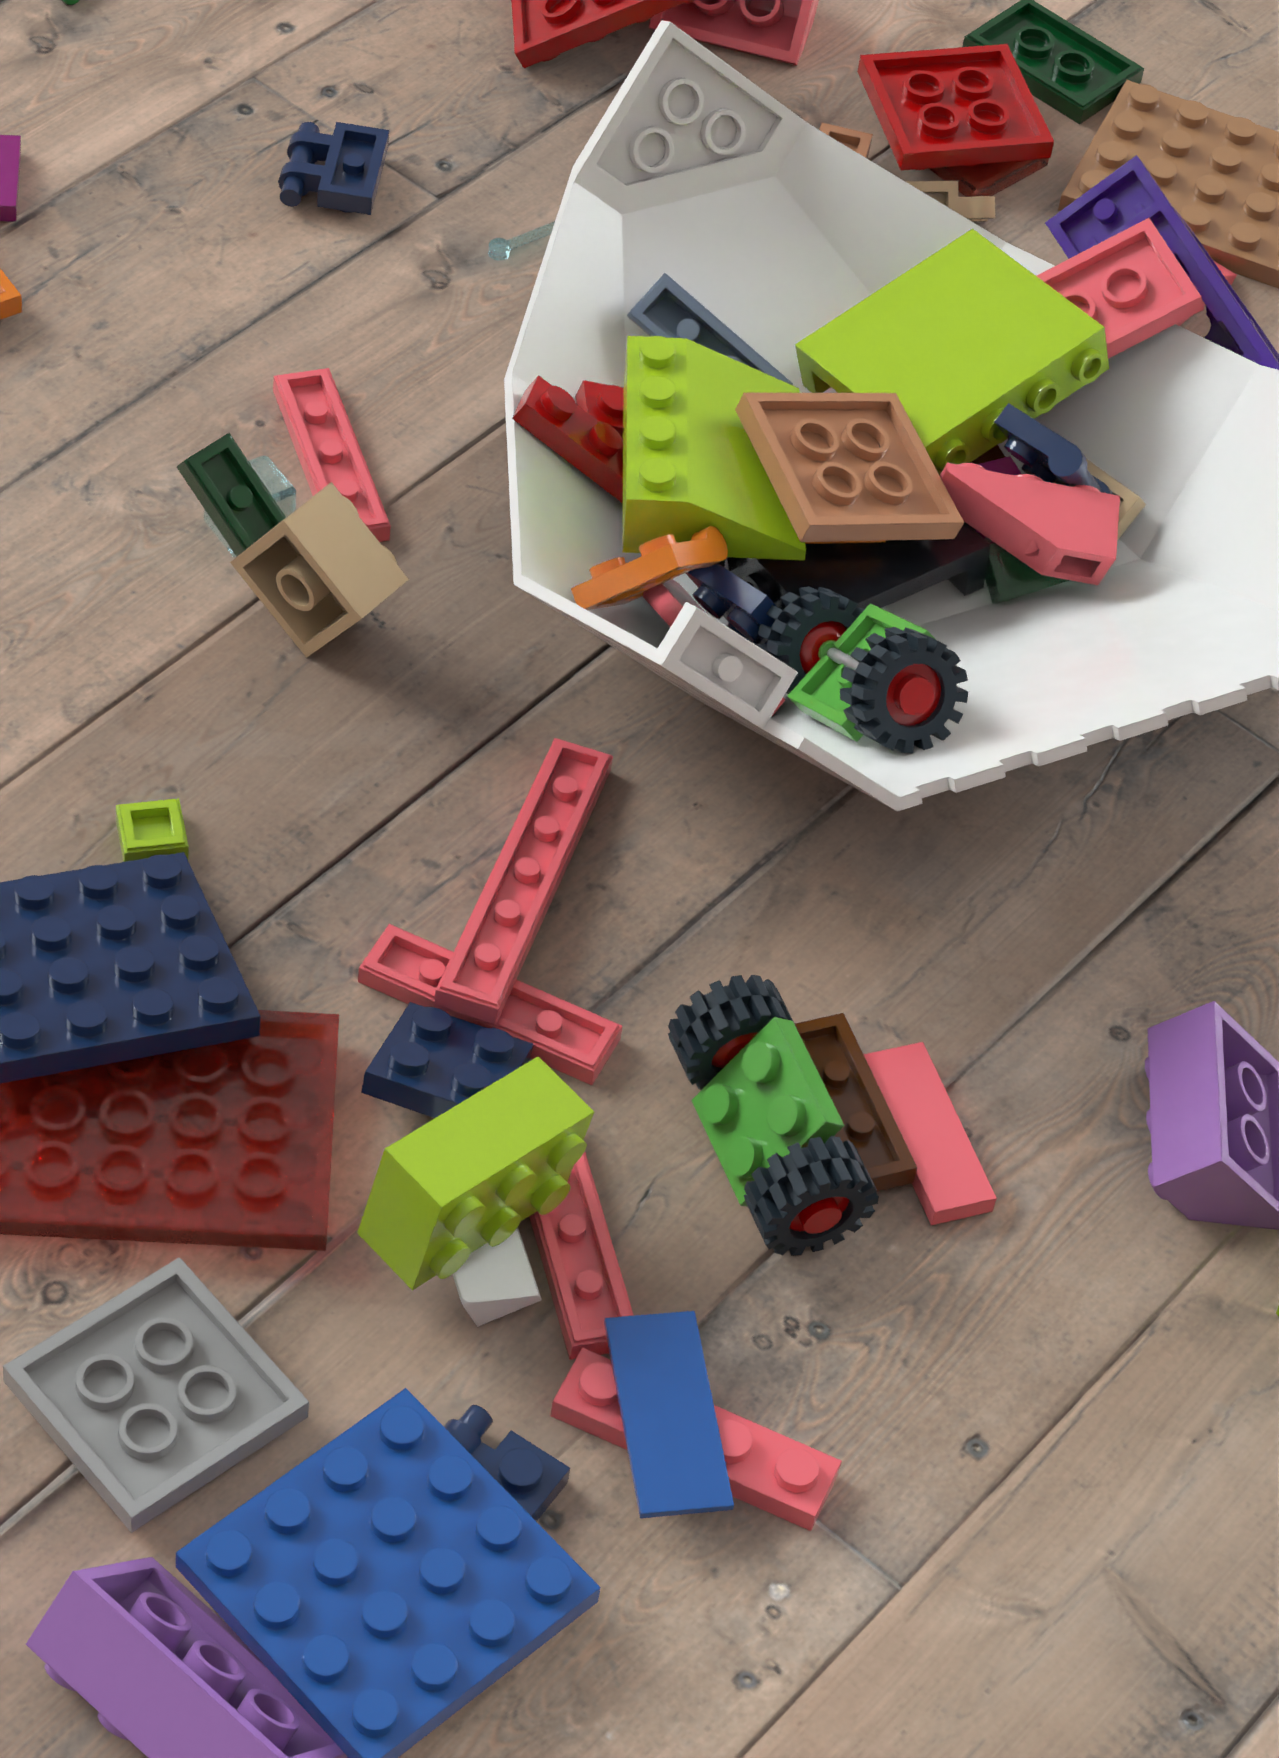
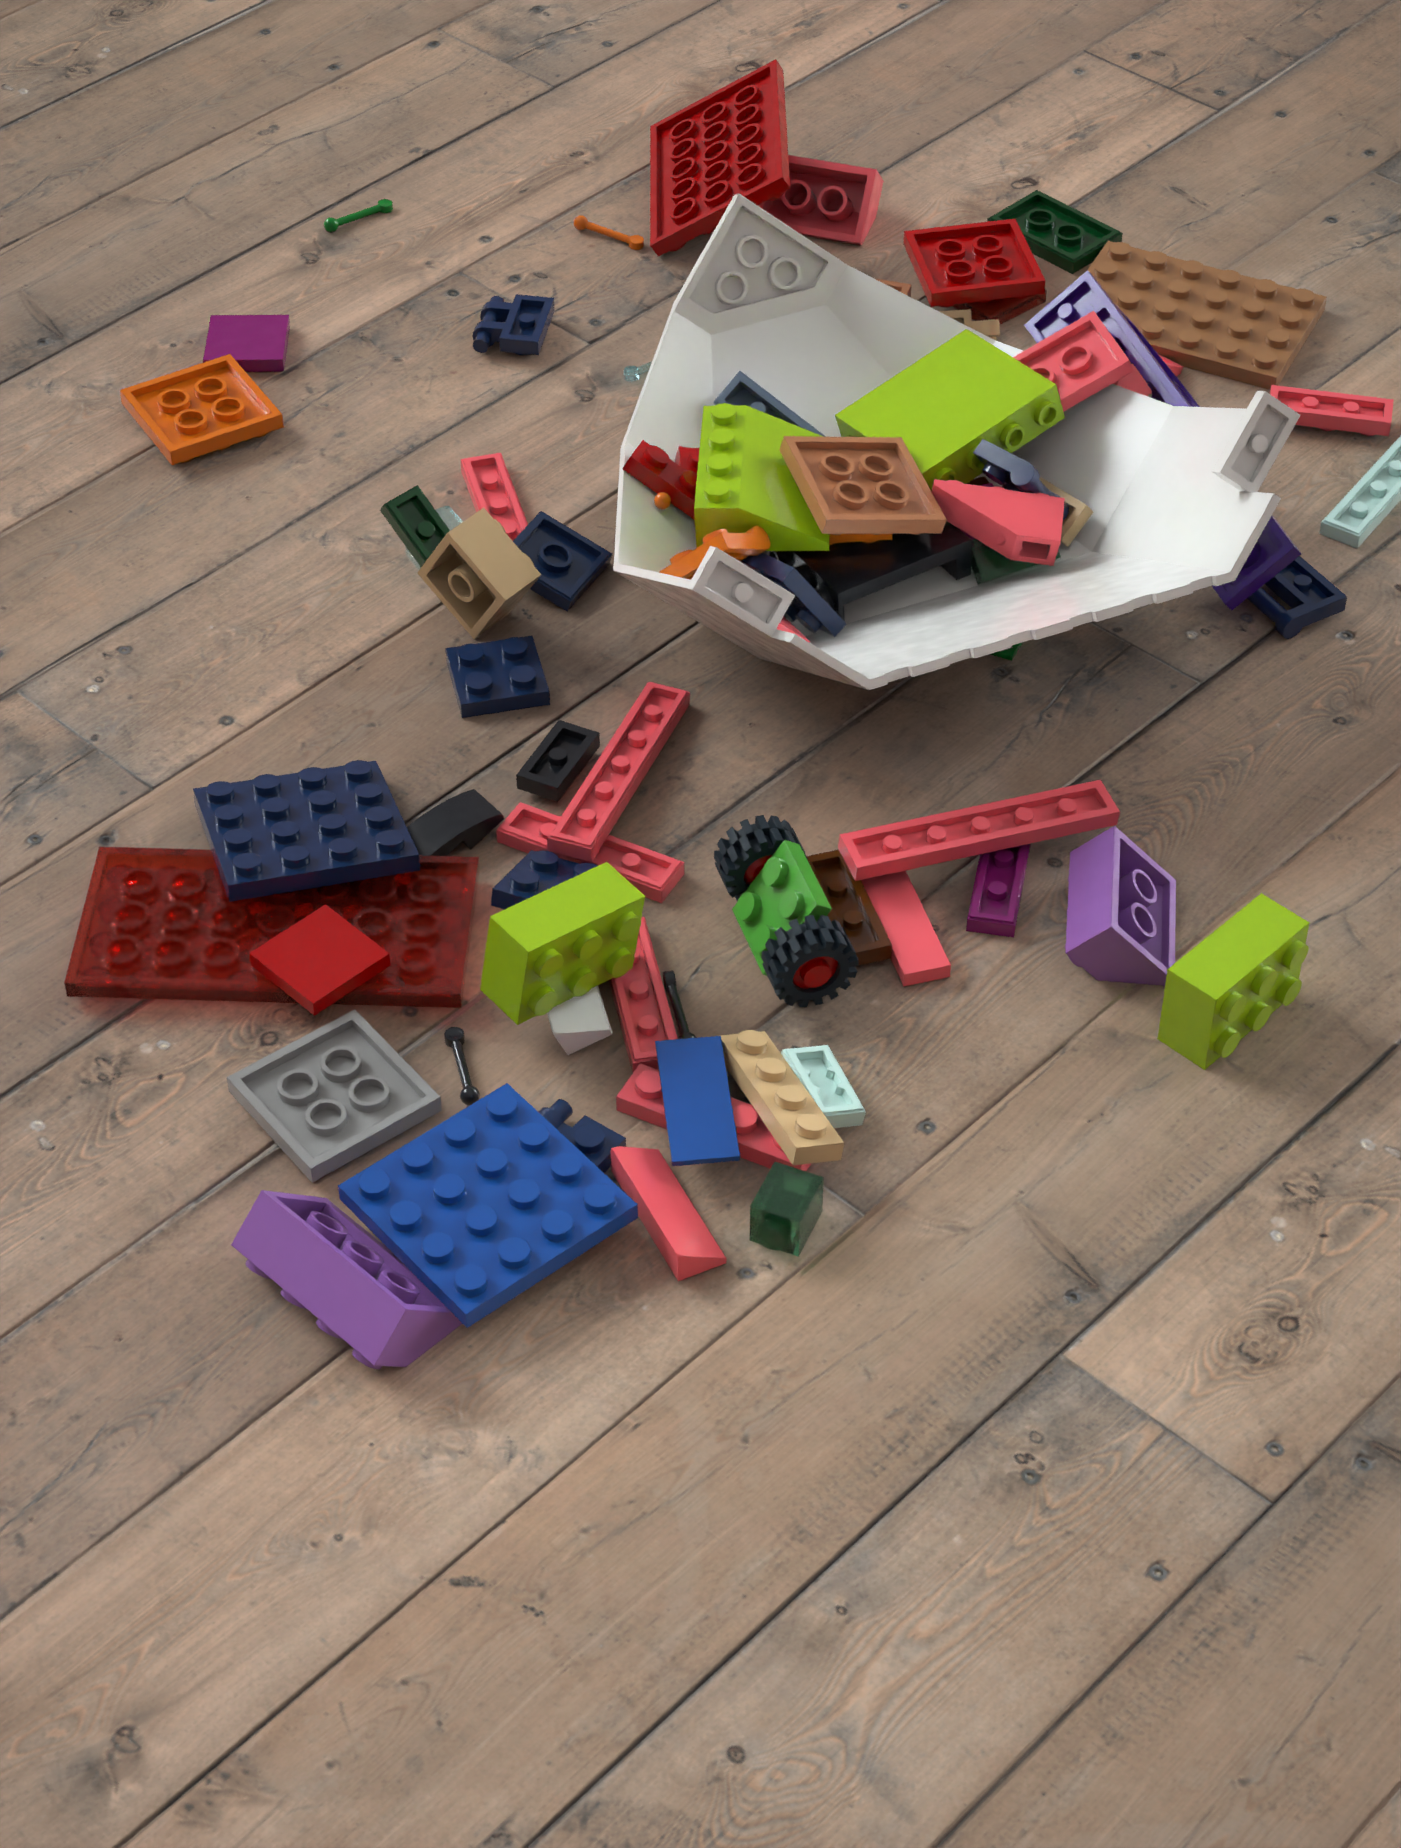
camera: 10 degrees right, 5 degrees down
(127, 1179) = (320, 959): none -> red tile
(151, 829) = (354, 745): lime tile -> none
(298, 955) = (456, 820): none -> black slope
(319, 1299) = (455, 1038): none -> black hinge
(344, 720) = (497, 676): none -> dark blue plate
(427, 538) = (563, 558): none -> dark blue plate
(438, 860) = (558, 760): none -> black plate
(491, 44) = (635, 242): none -> orange hinge
(567, 467) = (662, 500): none -> orange hinge
(614, 1218) = (670, 986): none -> black hinge
(633, 1584) = (666, 1211): none -> coral slope
(784, 1414) = (780, 1099): none -> tan plate
(800, 1587) = (786, 1209): none -> clear green brick
(835, 1390) = (826, 1084): none -> light aqua plate
(865, 669) = (858, 611): plate -> none
(1022, 993) = (977, 830): none -> coral plate
(1050, 1062) = (998, 891): none -> magenta tile

